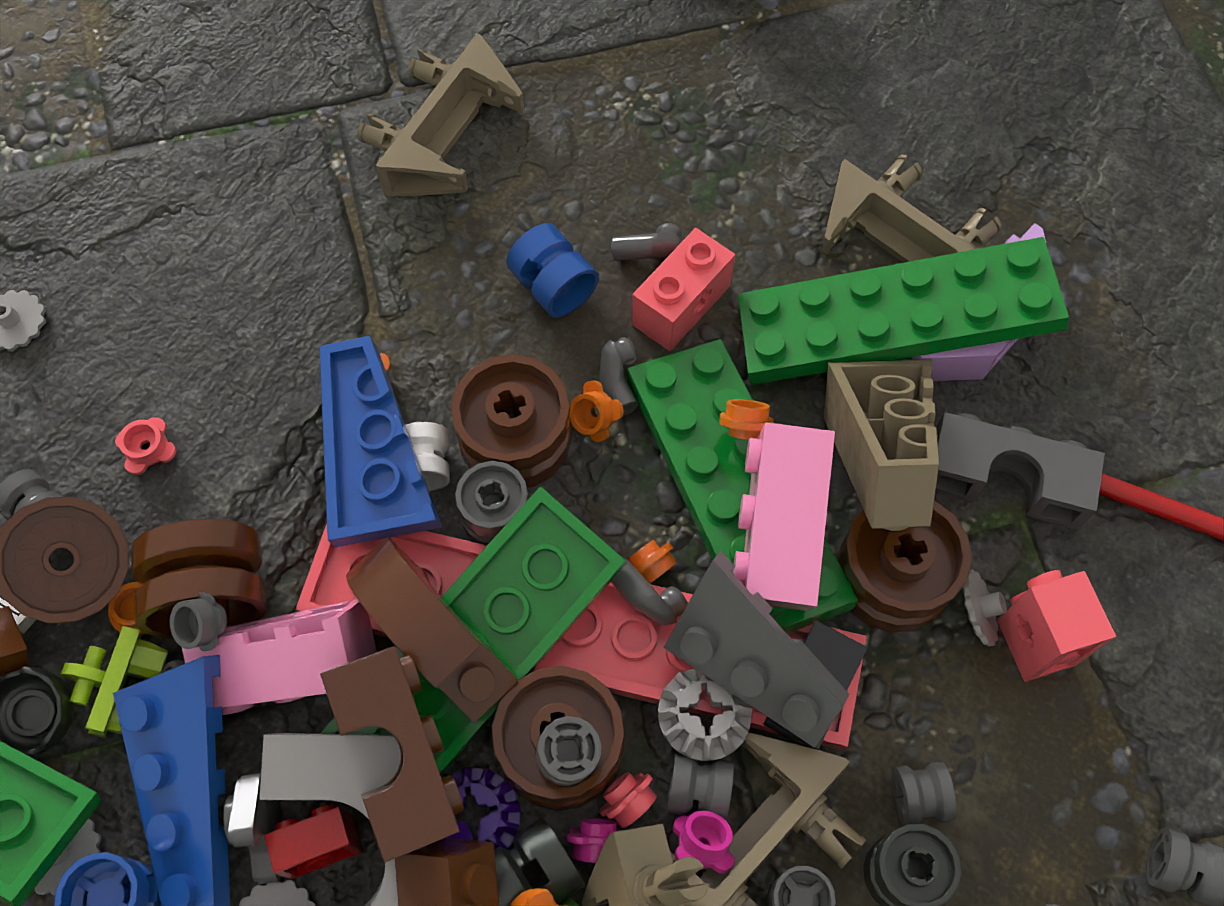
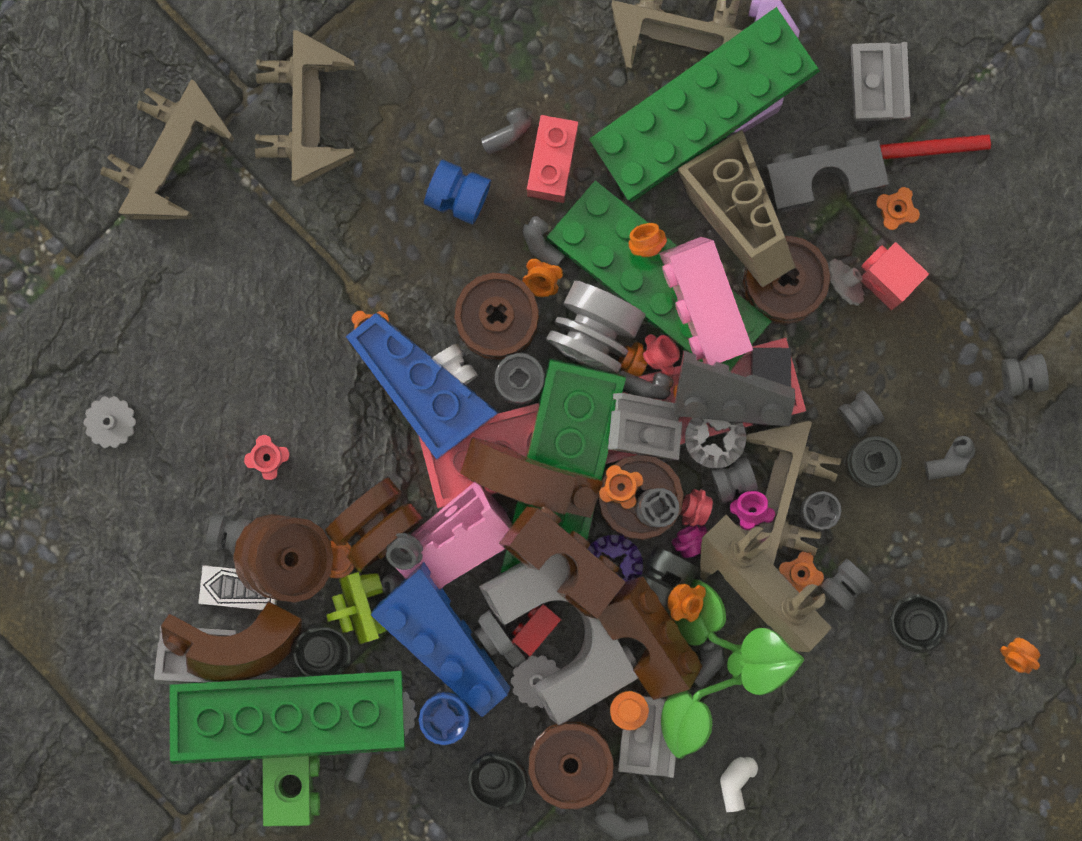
camera: 25 degrees left, 20 degrees up
(222, 105) = (144, 183): none -> dark tan hose
(531, 682) = (615, 477): none -> orange plate
(615, 641) = (645, 427): none -> light grey plate
(634, 485) = (595, 327): none -> light grey wheel
(688, 565) = (661, 353): none -> coral plate
(1101, 546) = (888, 203): none -> orange plate
(1130, 400) = (880, 81): none -> light grey plate

